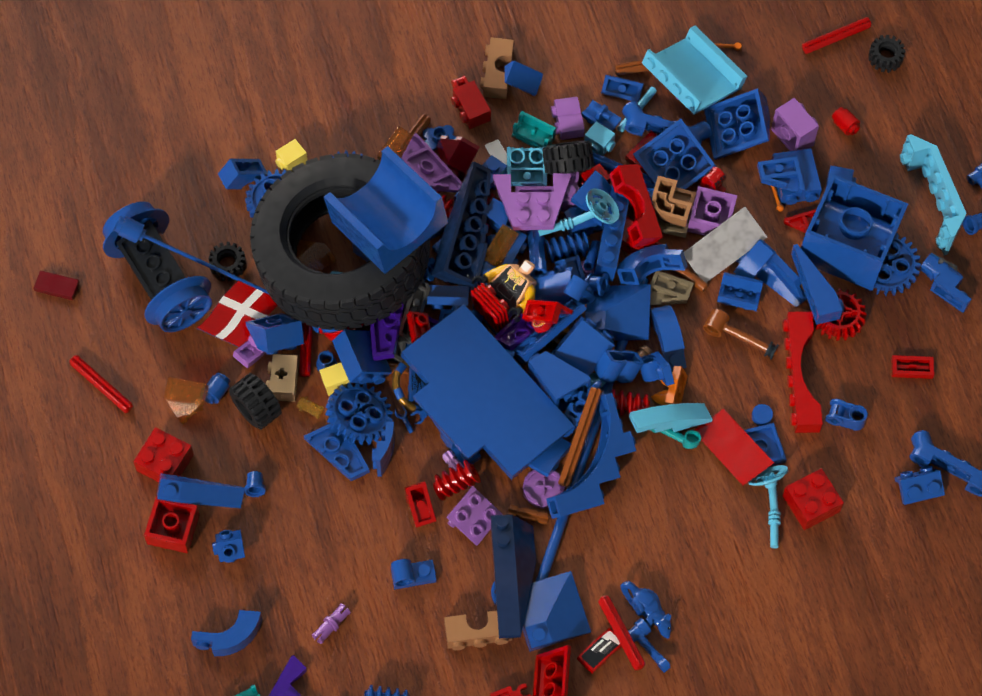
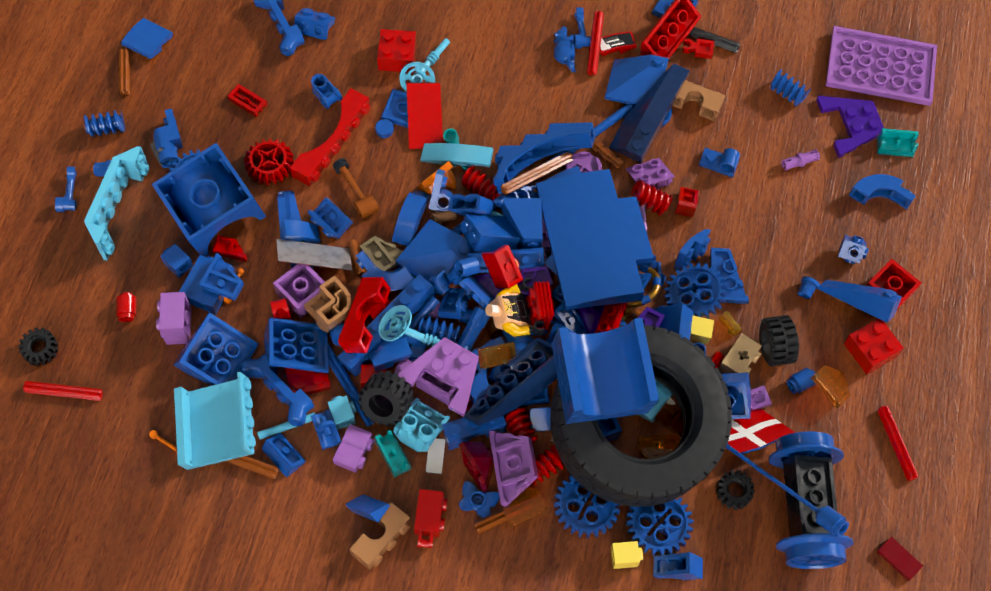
camera: 150 degrees left, 0 degrees up
(819, 293) = (277, 165): blue slope -> none

